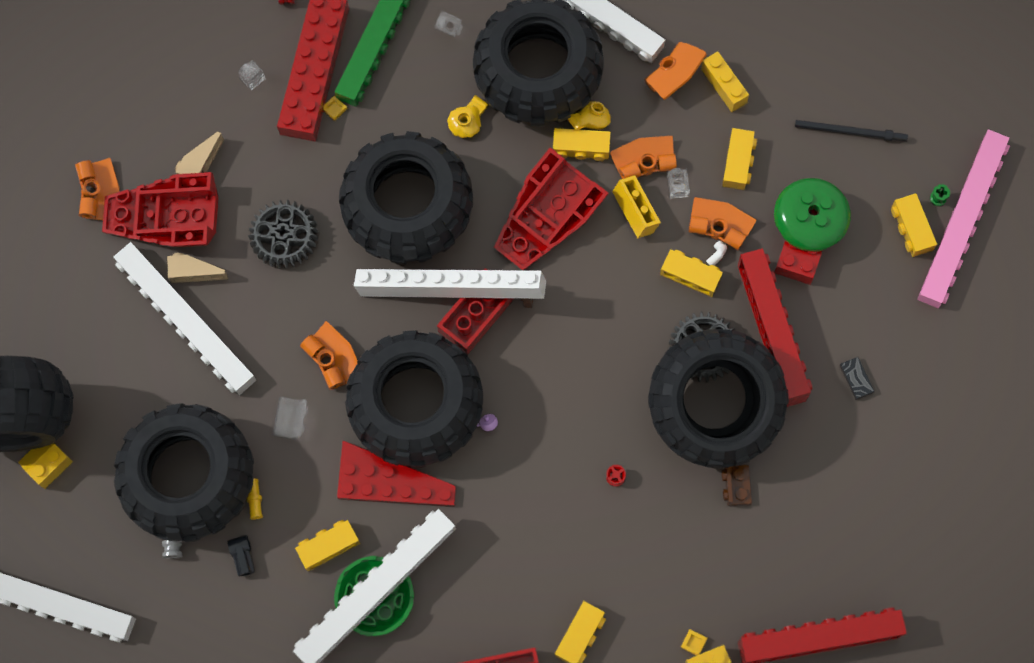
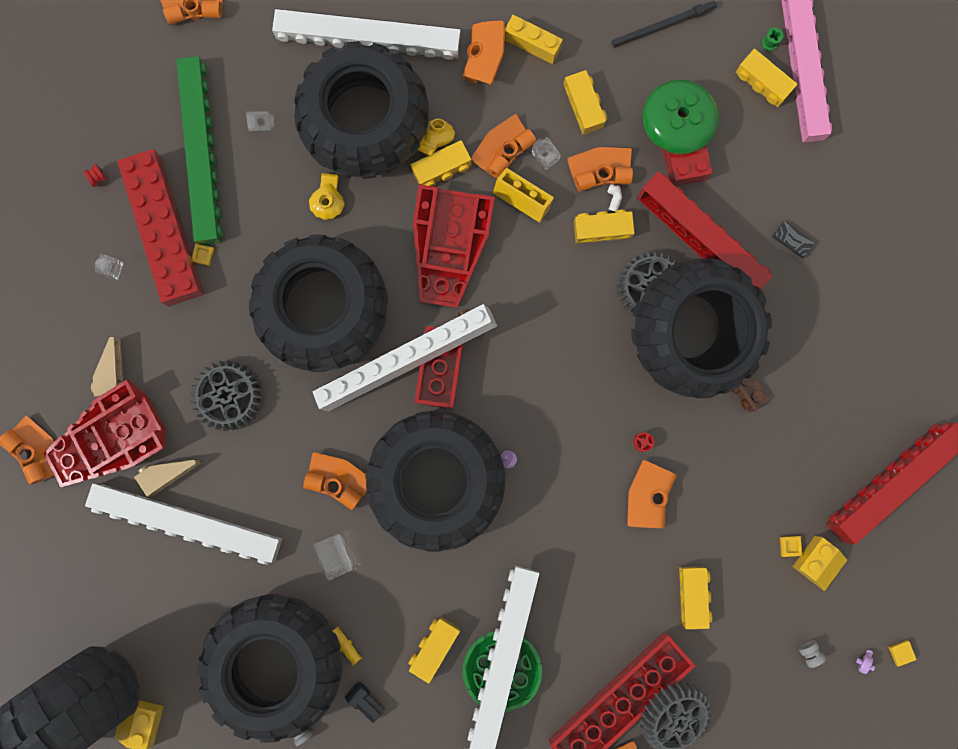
camera: 35 degrees left, 10 degrees up
(371, 478) = (434, 571): red wing -> none
(599, 511) = (641, 507): none -> orange panel

